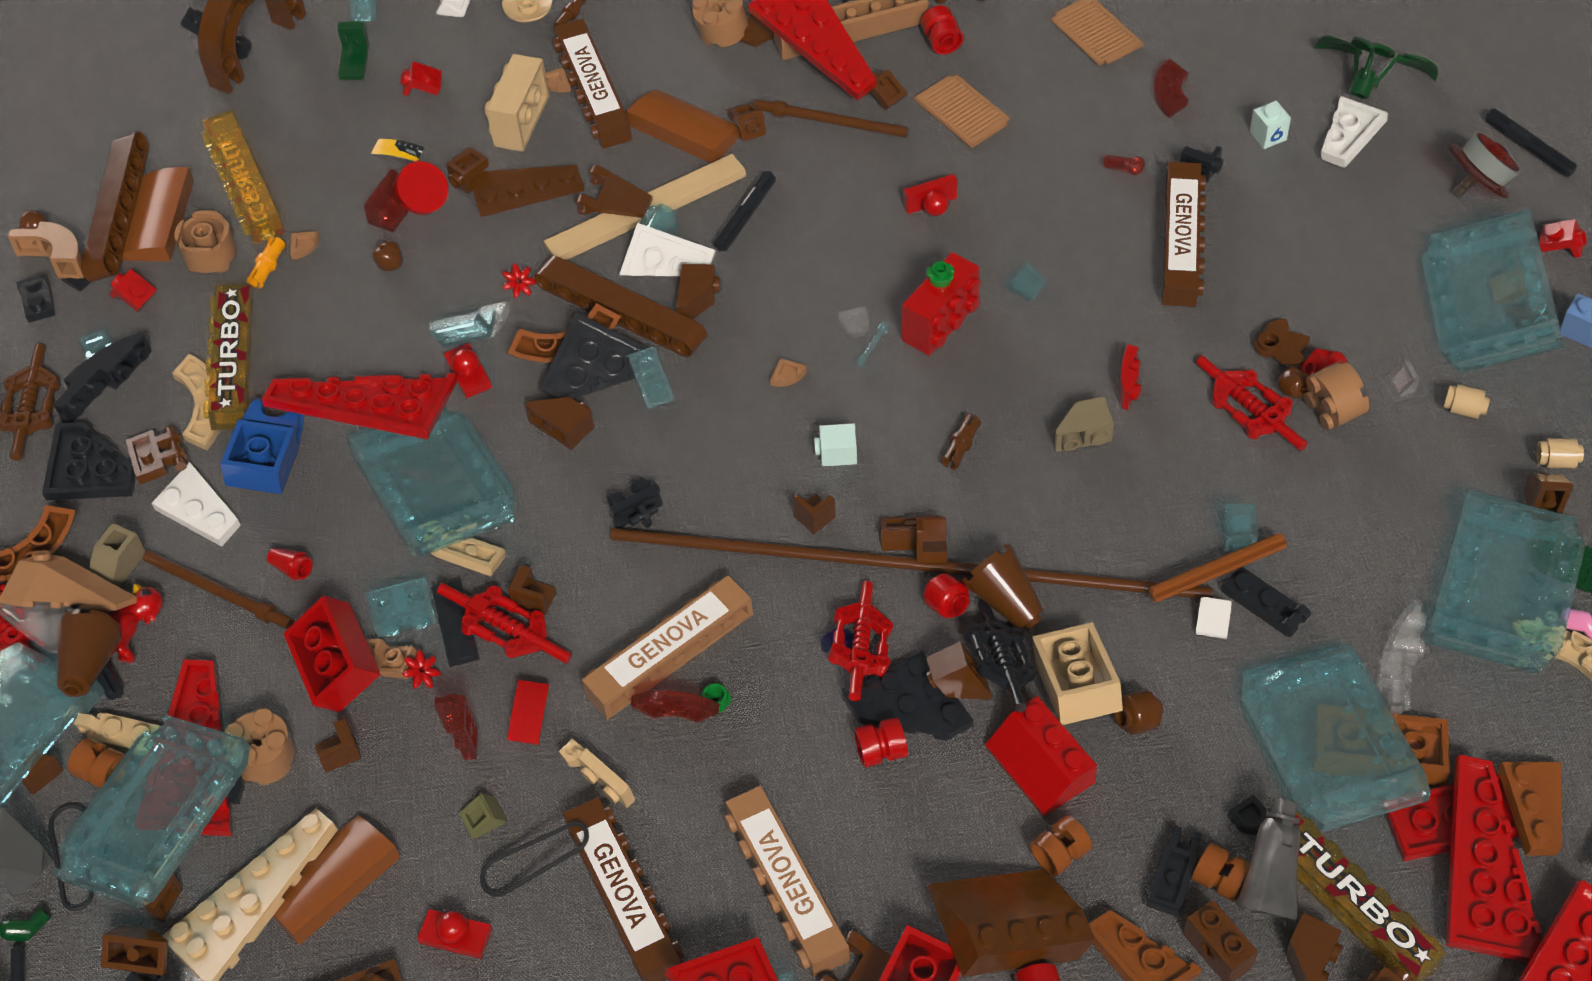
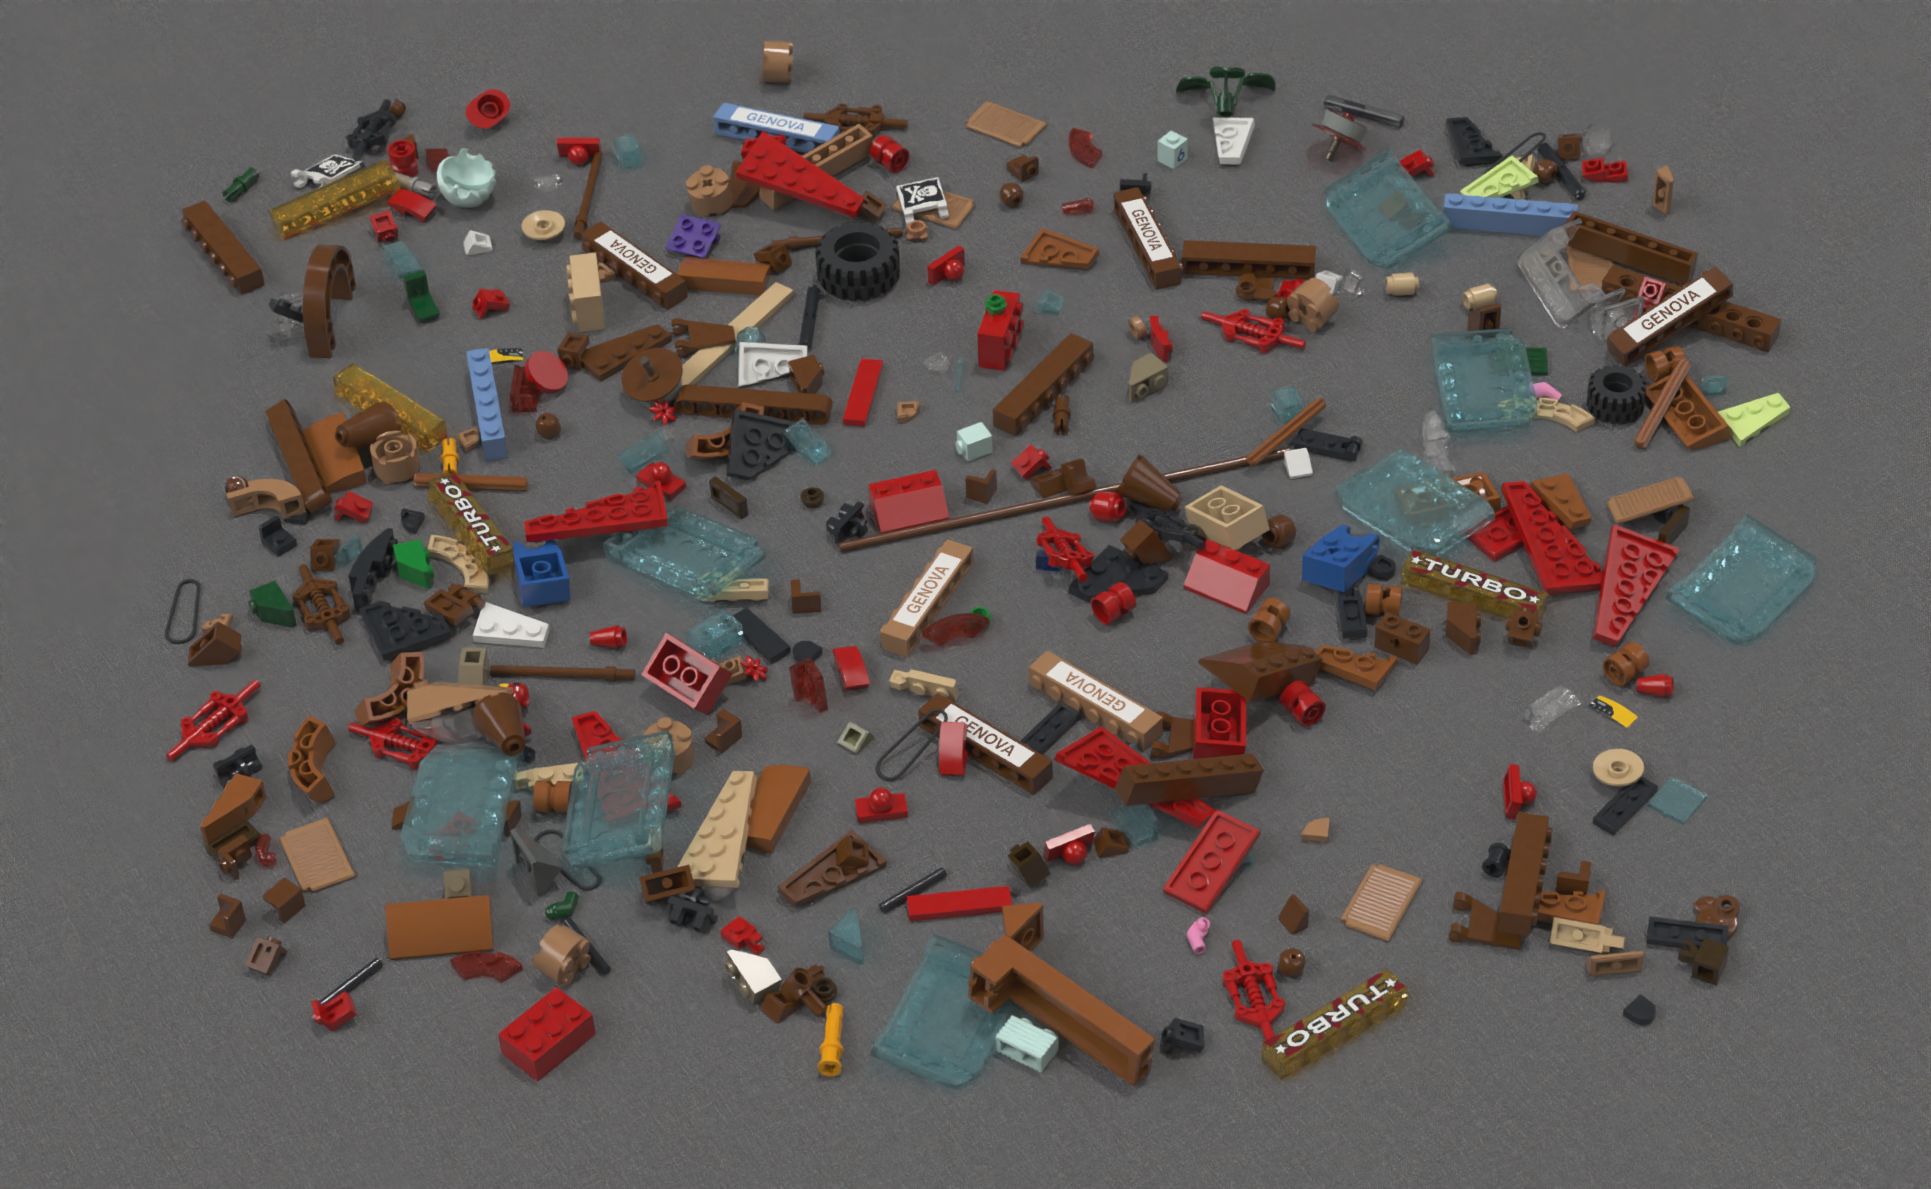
camera: 25 degrees left, 10 degrees down
(65, 335) = (323, 554): none -> reddish brown bracket
(147, 383) = (412, 564): none -> green slope
(184, 326) = (412, 520): none -> black tile
(189, 195) = (367, 426): none -> reddish brown cone
(274, 300) = (478, 481): none -> dark orange axle
(339, 208) = (487, 404): none -> medium blue brick
(482, 607) = (819, 624): red bar -> none
(493, 668) = (805, 650): none -> black tile
(522, 421) = (728, 497): none -> dark brown tile
(525, 234) = (653, 376): none -> reddish brown piece
(561, 419) = (759, 487): reddish brown slope -> none
(573, 883) = (952, 749): none -> slope
(617, 459) = (812, 497): none -> dark brown plate
(674, 67) = (693, 236): none -> dark purple hinge
(710, 900) = (1051, 728): none -> black tile
(717, 502) = (908, 501): none -> red slope
(751, 330) = (863, 392): none -> red tile
(831, 182) = (857, 243): none -> black tyre
(890, 495) = (1030, 461): none -> red bracket
(923, 137) = (916, 230): none -> nougat plate
(949, 96) = (922, 197): none -> flag
(959, 393) = (1043, 384): none -> reddish brown brick
(1052, 125) = (1011, 195): none -> reddish brown piece
(1070, 216) = (1058, 250): none -> dark orange wing
(1087, 93) = (1024, 167): none -> reddish brown bracket
(1109, 352) = (1137, 327): none -> medium nougat tile
(1194, 786) = (1339, 558): none -> blue brick
(1272, 875) = (1418, 589): flat silver piece -> none
(1301, 305) = (1239, 258): none -> reddish brown brick
(1375, 365) = (1331, 279): none -> white slope

